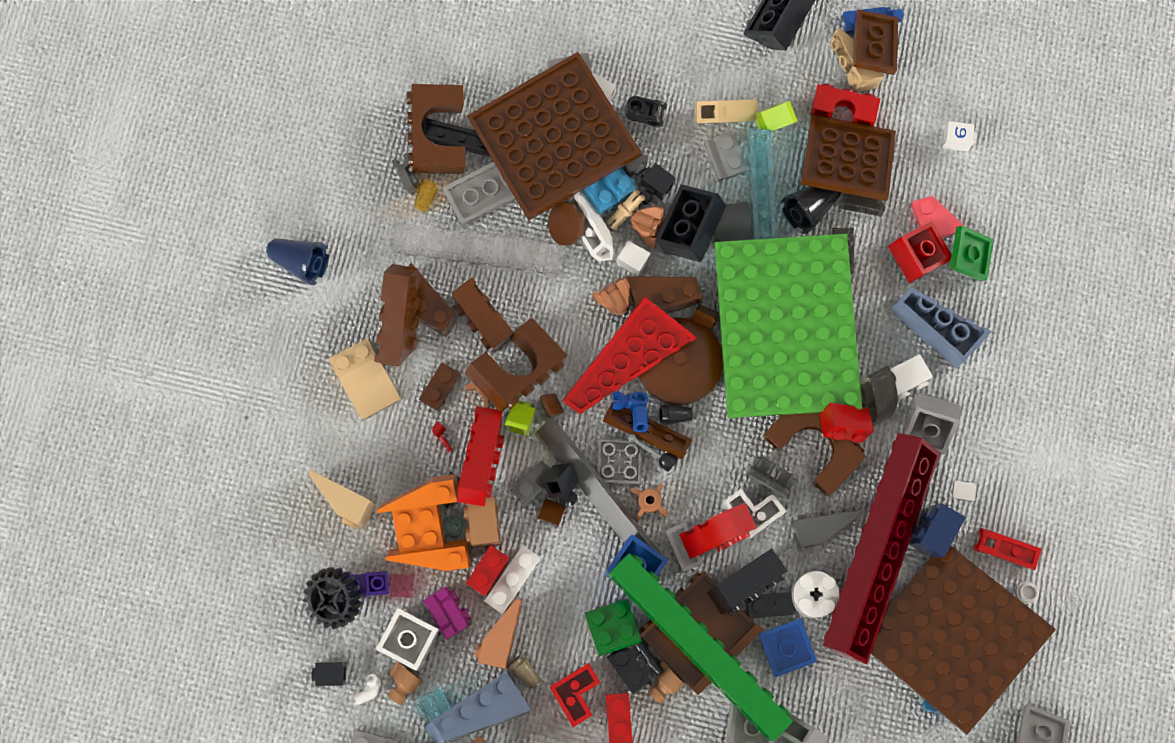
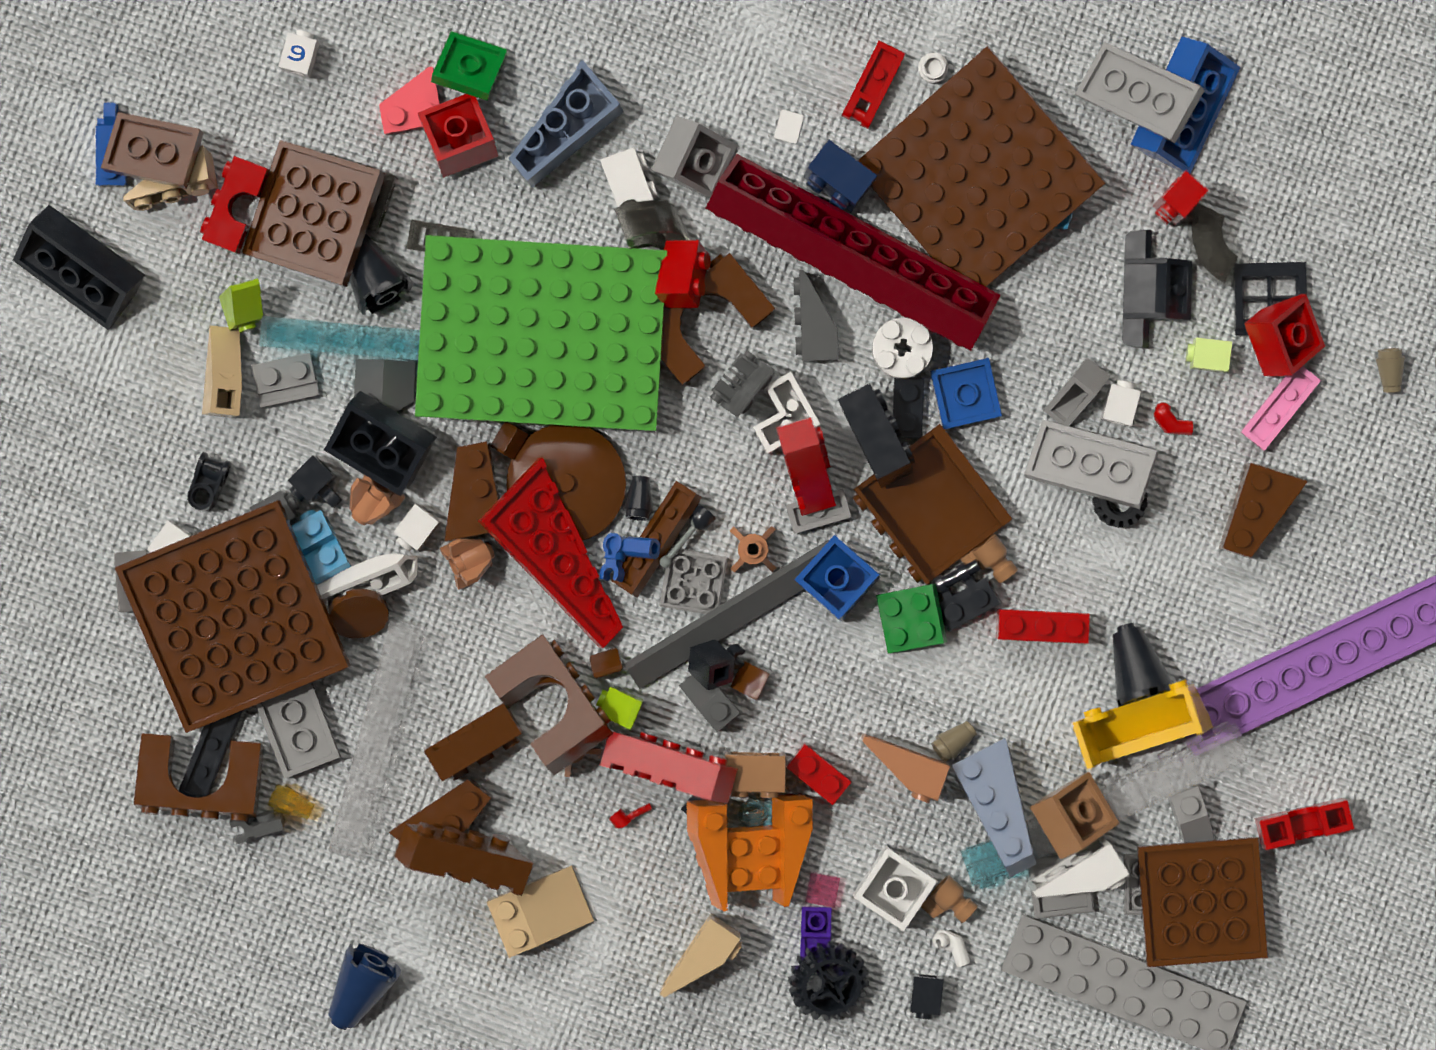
camera: 85 degrees left, 10 degrees up
(439, 386) = (561, 811): reddish brown plate -> none
(447, 613) = (866, 833): magenta brick -> none
(512, 579) = (832, 742): white plate -> none
(570, 690) = (989, 685): red brick -> none
(625, 209) = (348, 529): tan pin -> none
(700, 647) = (952, 510): green brick -> none

